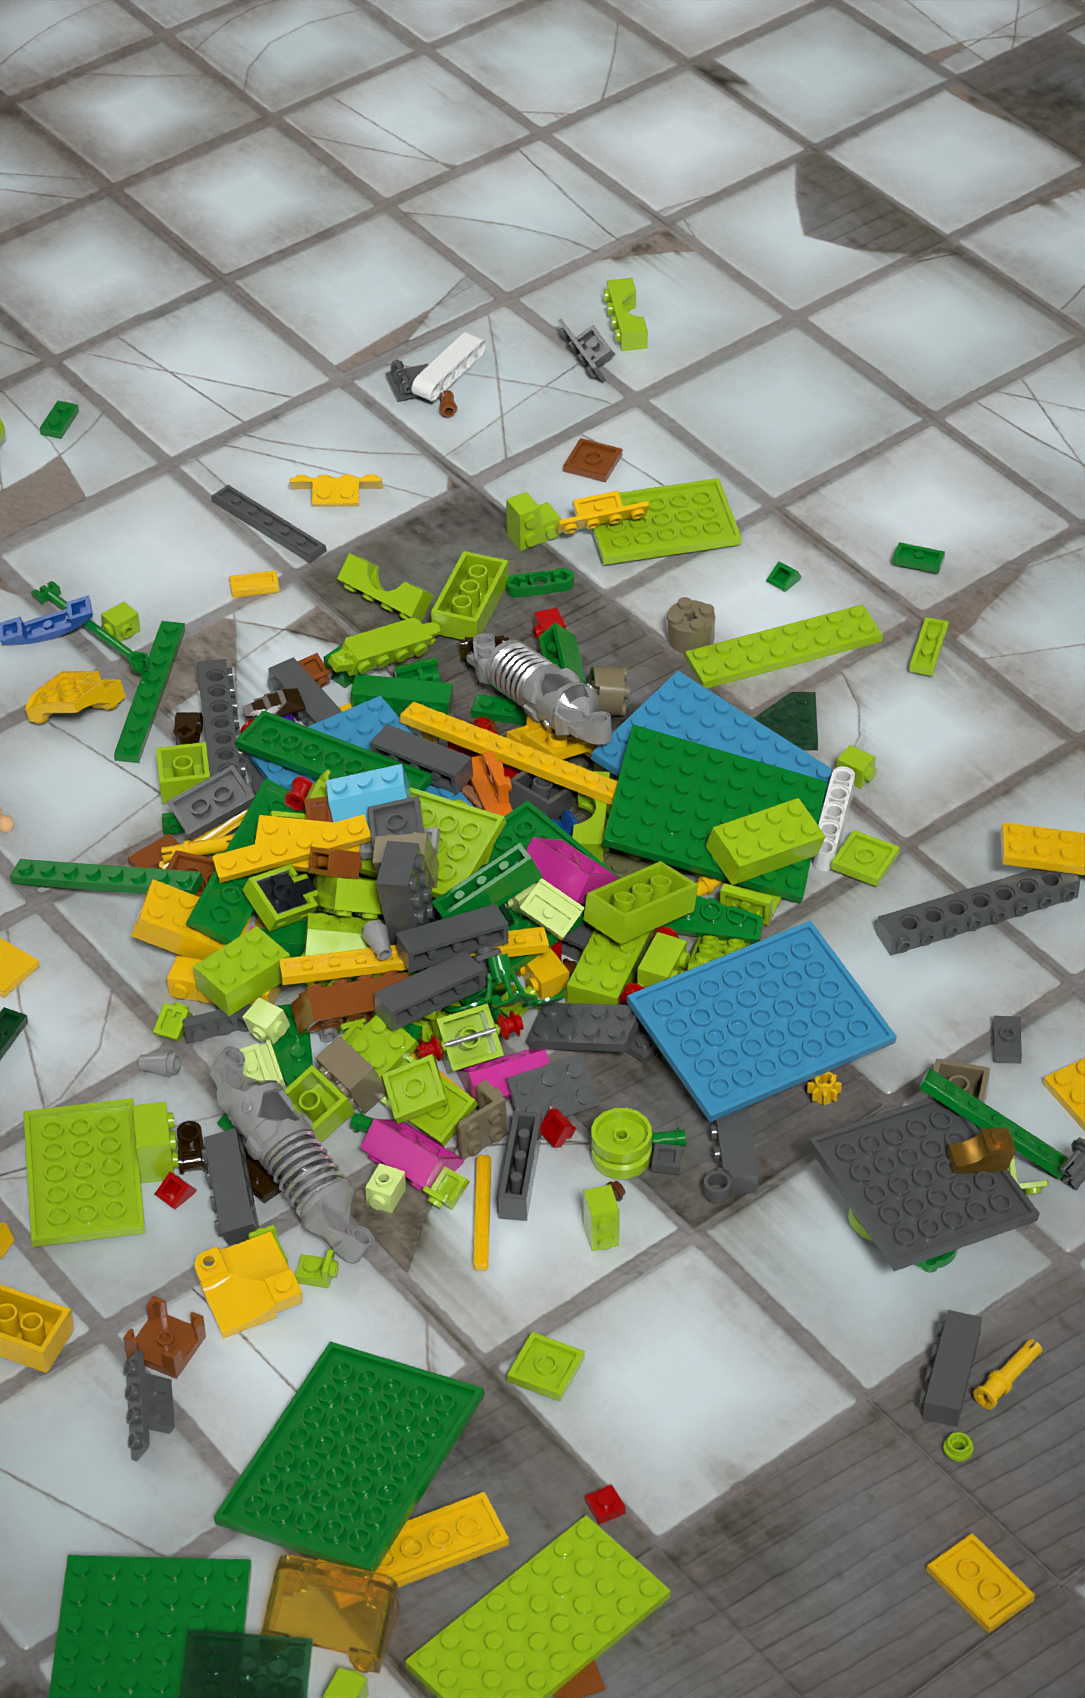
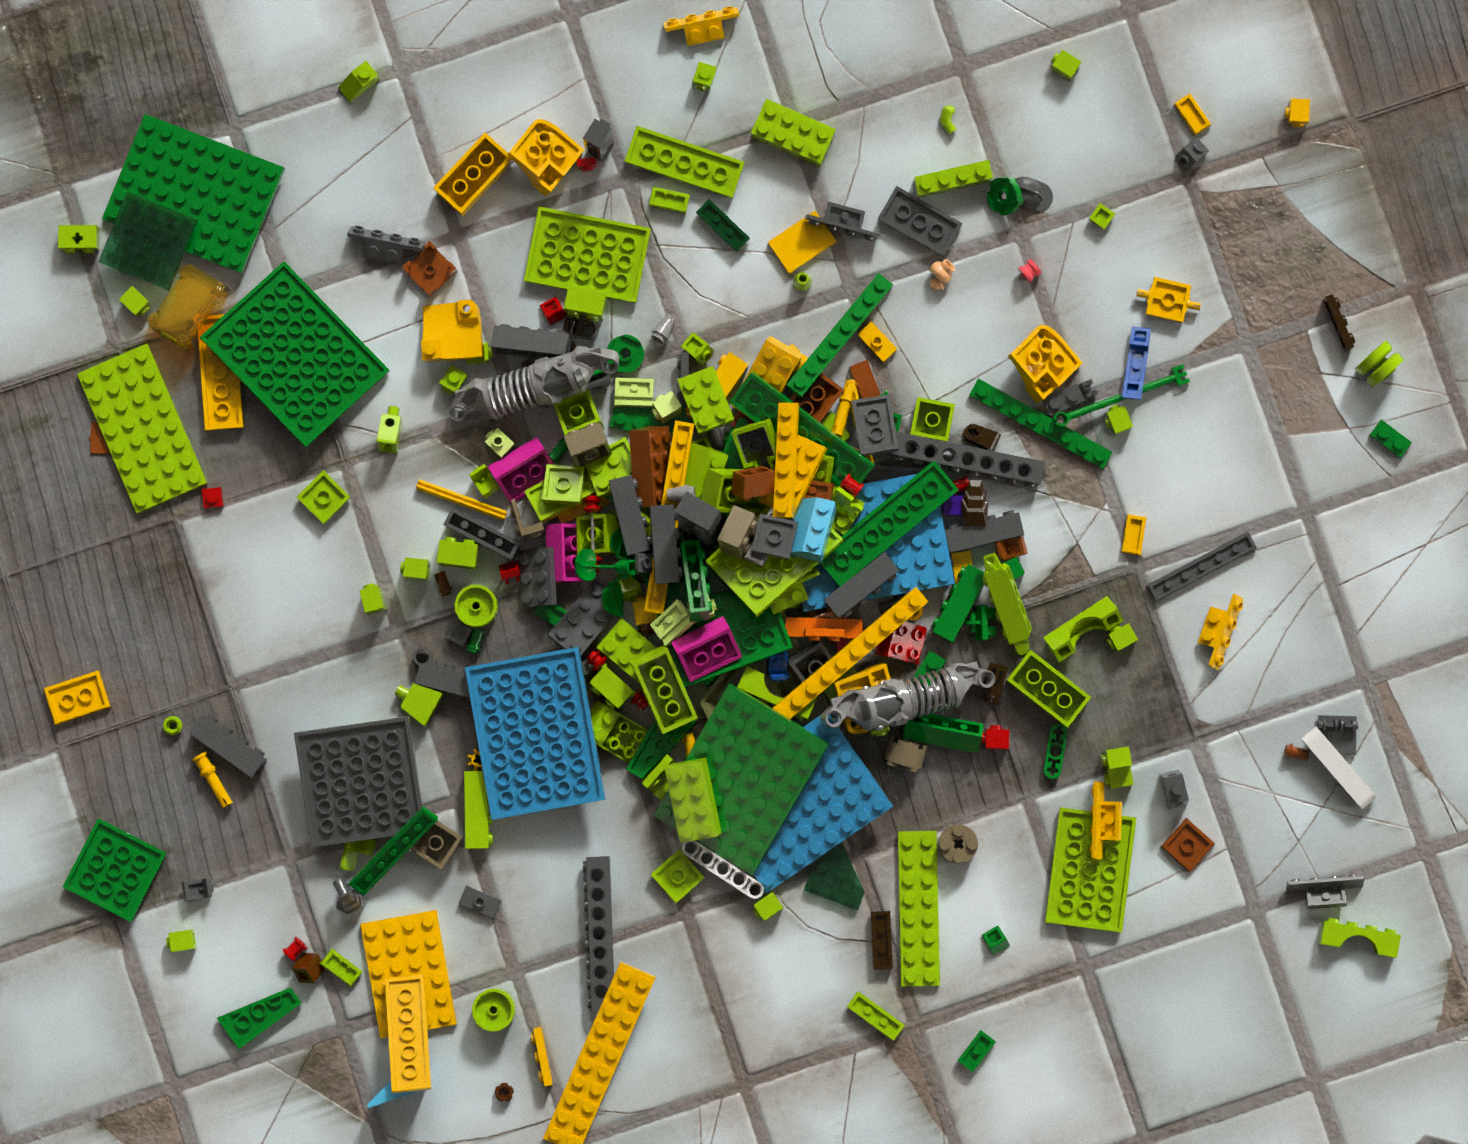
camera: 110 degrees right, 40 degrees up
(44, 942) = (802, 286): none -> lime cone
(104, 851) = (877, 341): none -> yellow plate
(108, 670) = (1067, 398): none -> dark grey hinge
(194, 1099) = (635, 349): none -> green plate
(382, 555) = (1121, 637): none -> lime brick
(419, 1309) = (389, 437): none -> lime torso
(535, 473) = (1174, 789): none -> dark grey torso
(559, 1179) = (458, 554): none -> lime brick
(598, 1066) = (550, 613): none -> green tile
(666, 1254) = (372, 599): none -> lime brick
(781, 1171) = (419, 701): none -> lime torso
(839, 663) = (881, 940): none -> dark brown plate
(888, 1070) = (476, 811): none -> lime brick
(986, 1152) = (362, 826): pearl gold arch -> none

